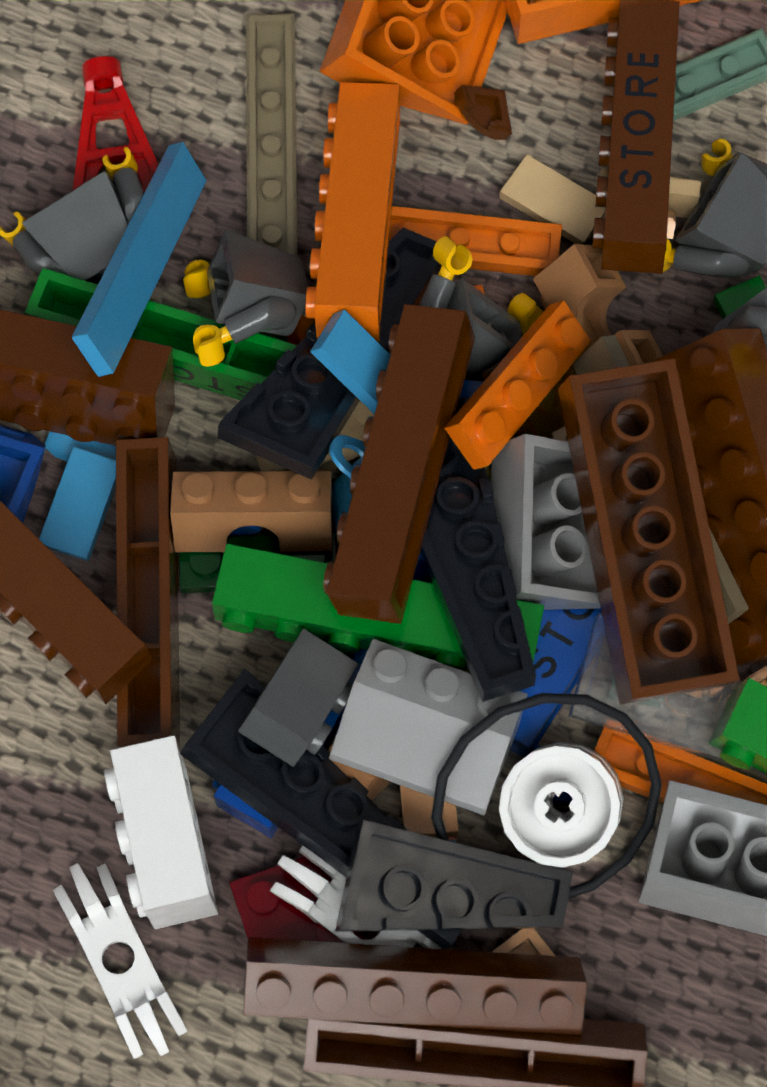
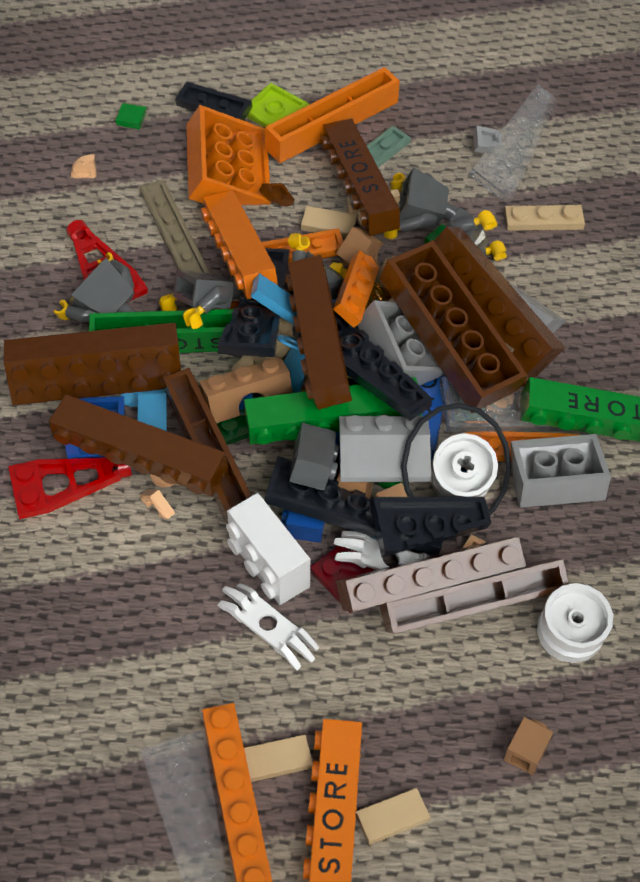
camera: 25 degrees left, 15 degrees down
(25, 668) = (155, 497): none -> light nougat tile
(139, 260) = (140, 293): dark azure tile -> none

